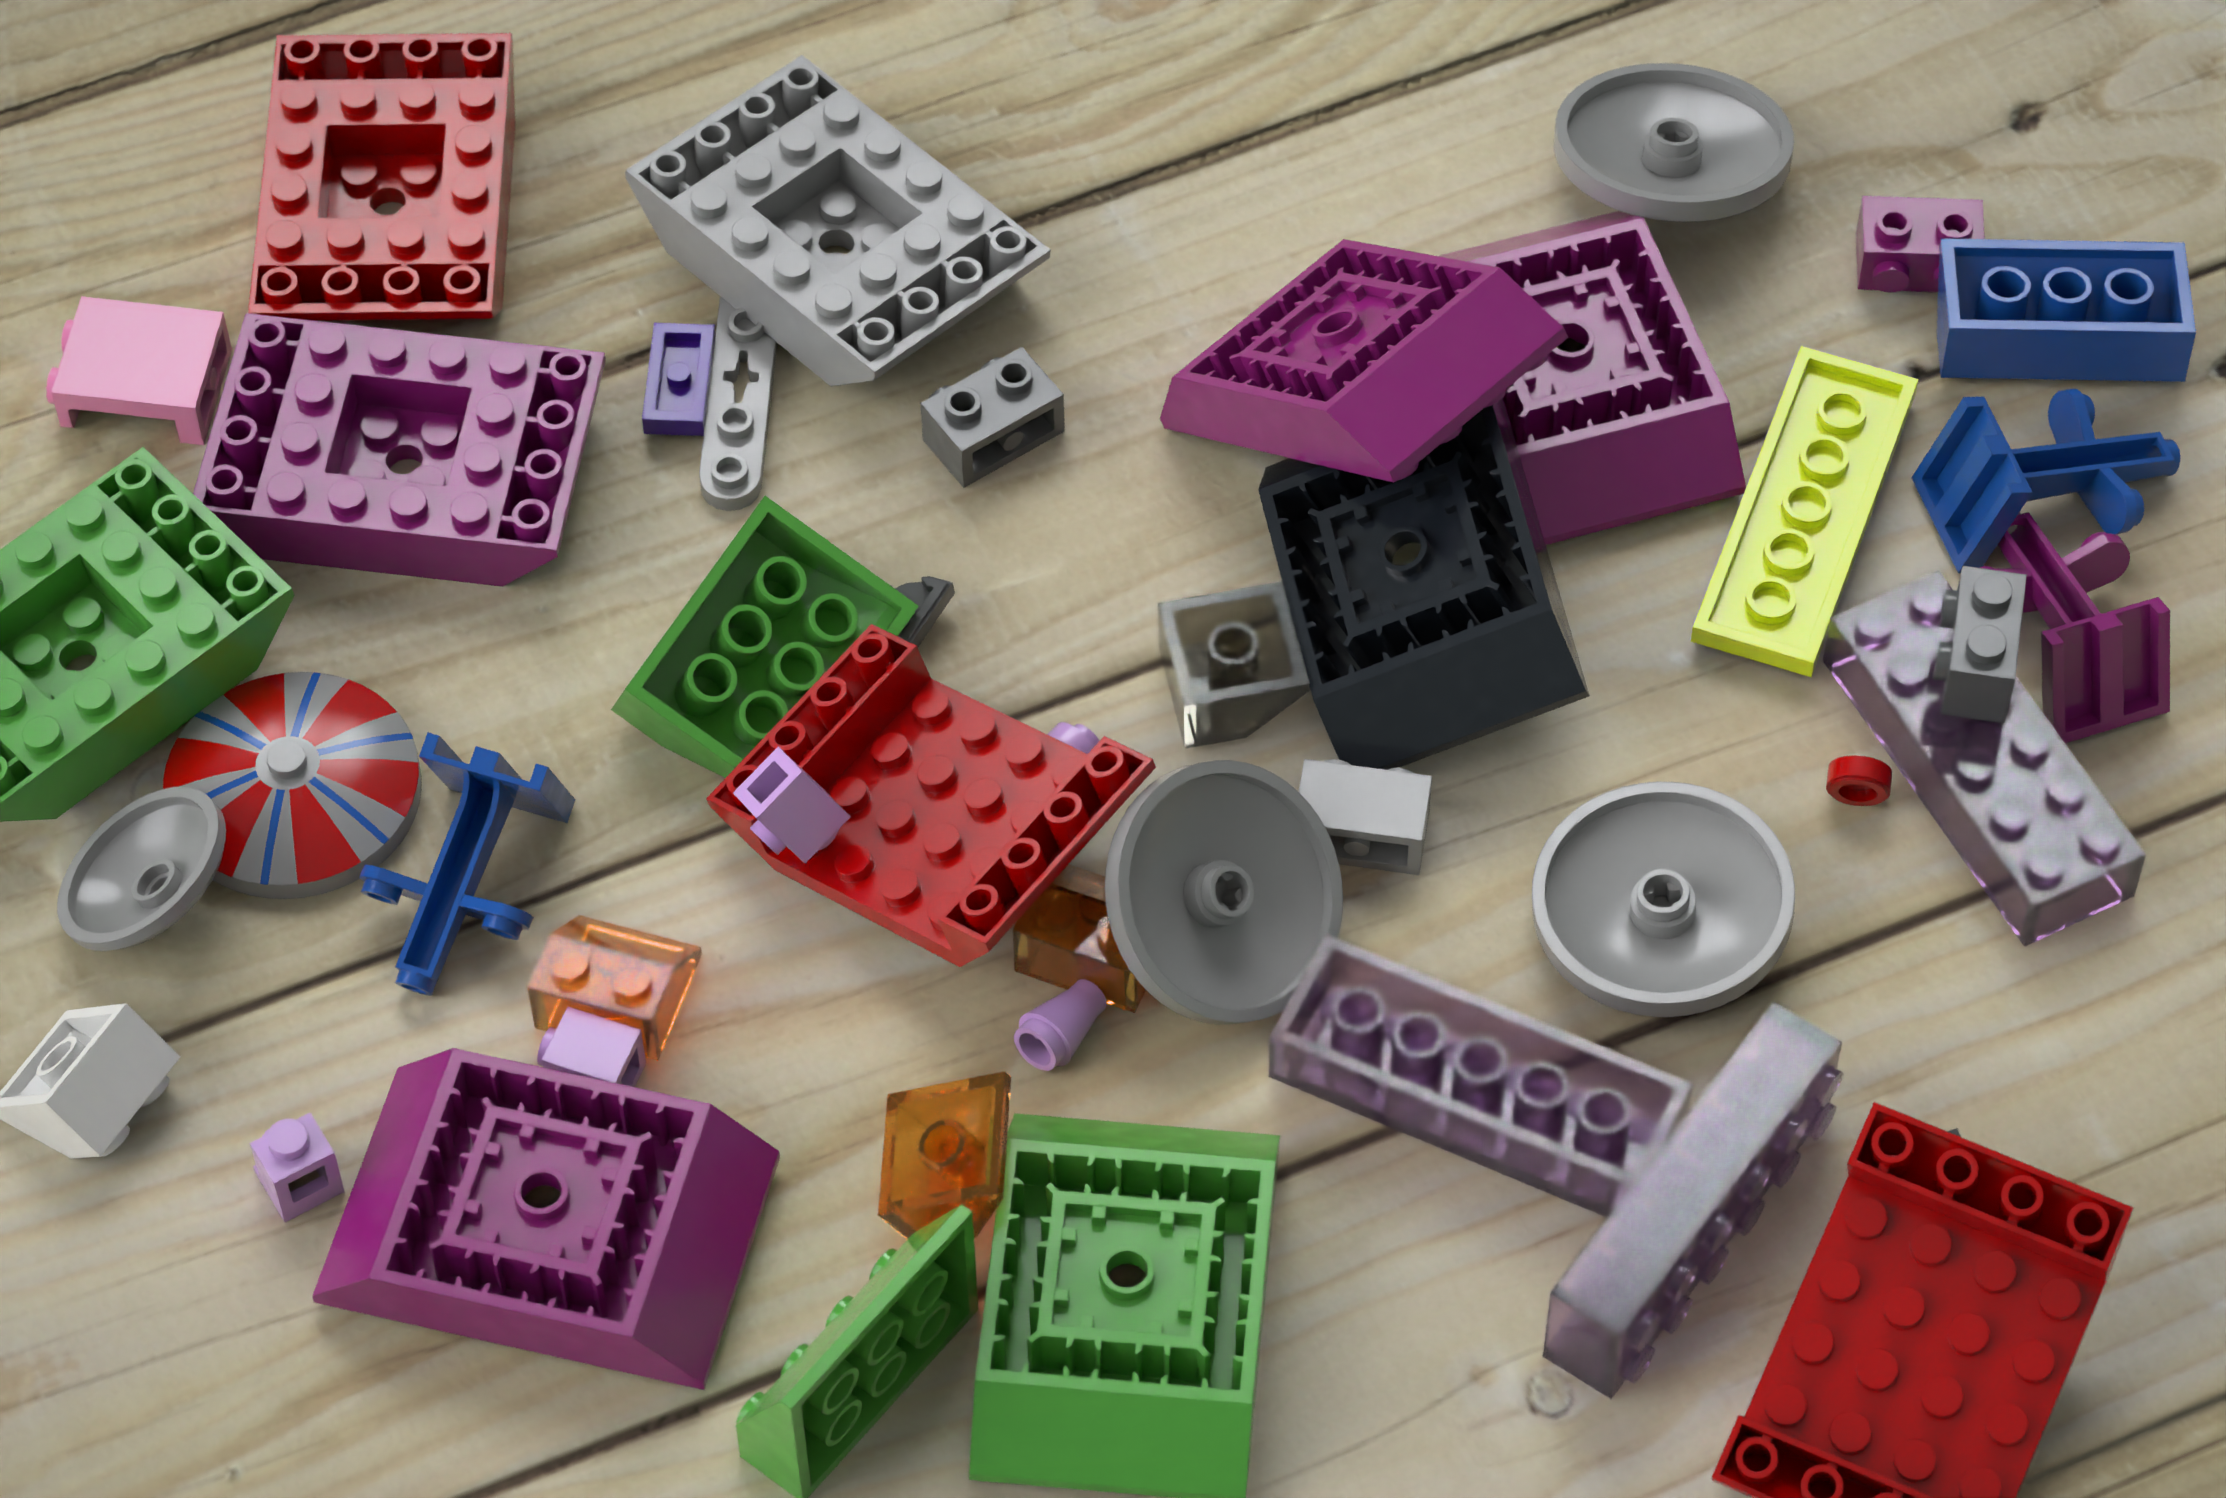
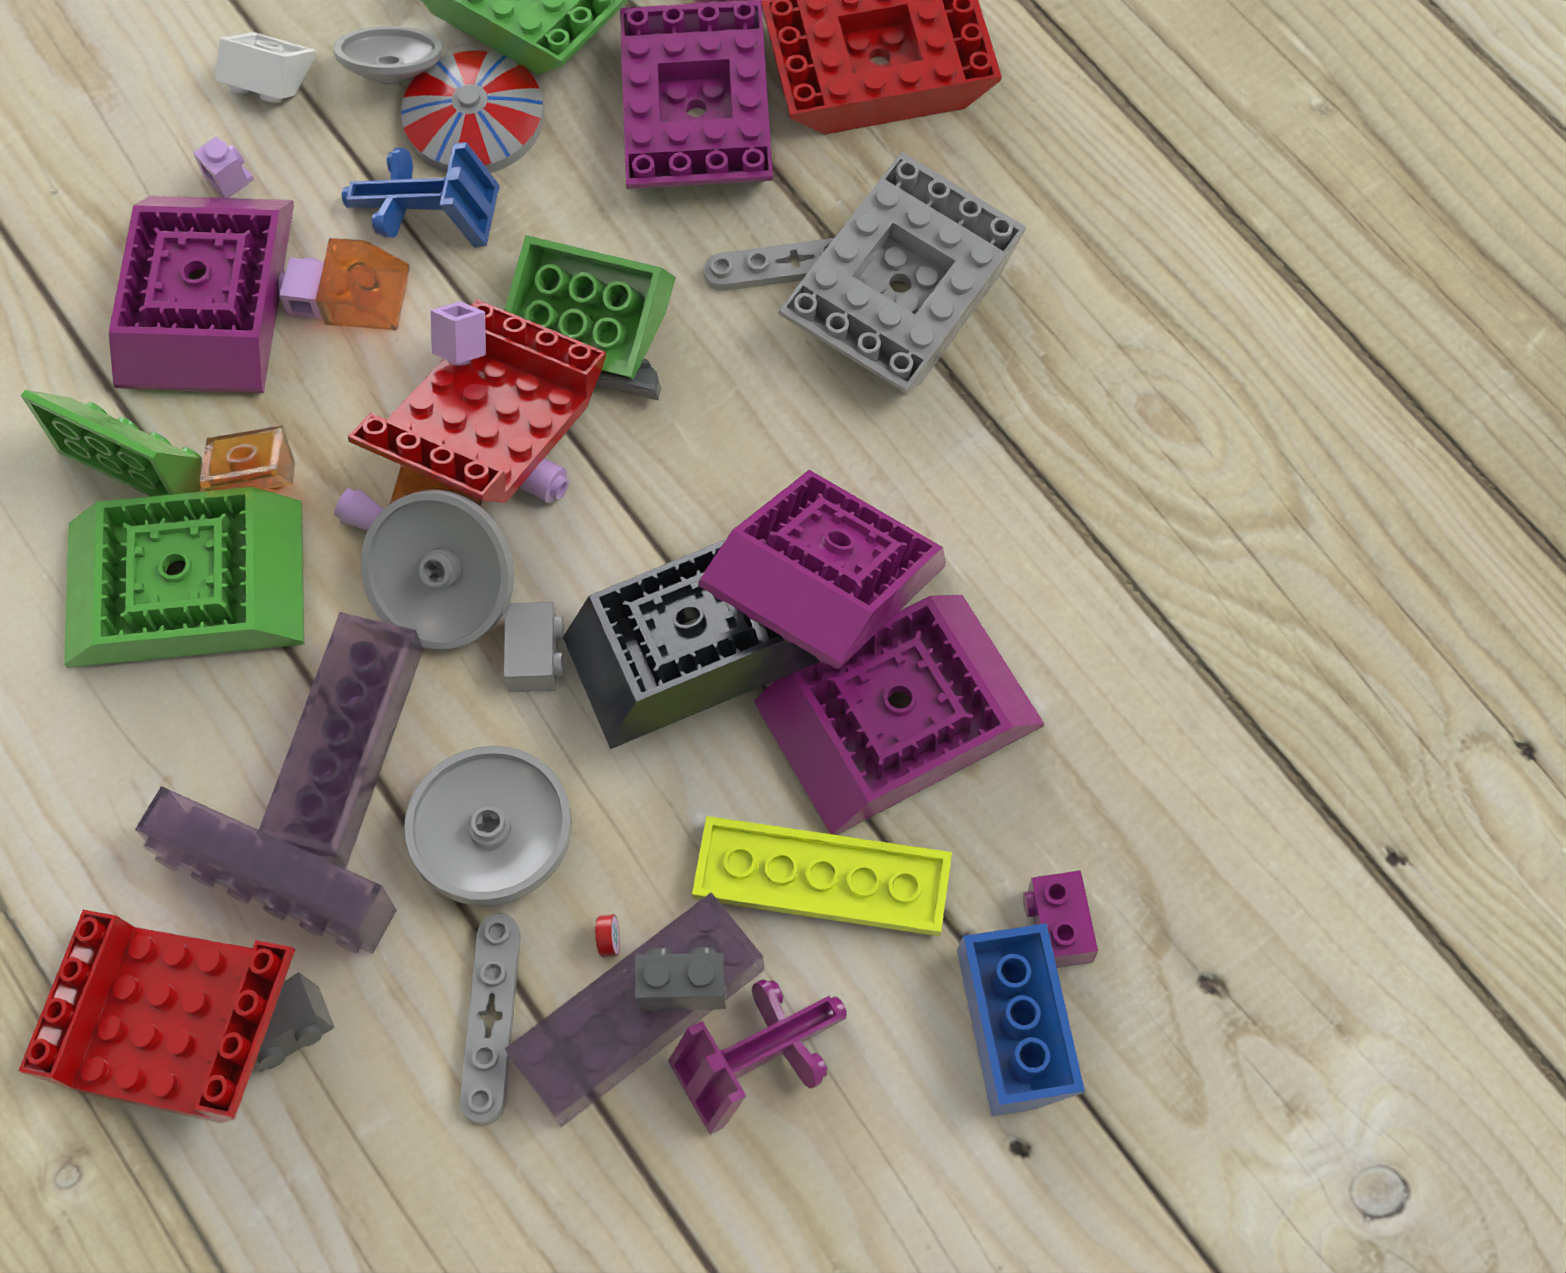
camera: 80 degrees right, 10 degrees up
(678, 379) = (783, 226): plate -> none
(992, 416) = (789, 392): dark grey brick -> none
(1230, 661) = (617, 544): clear smoke slope -> none
(1673, 142) = (1101, 745): light grey dish -> none
(1981, 484) = (852, 980): blue piece -> none
(2021, 969) = (486, 1059): none -> light grey piece

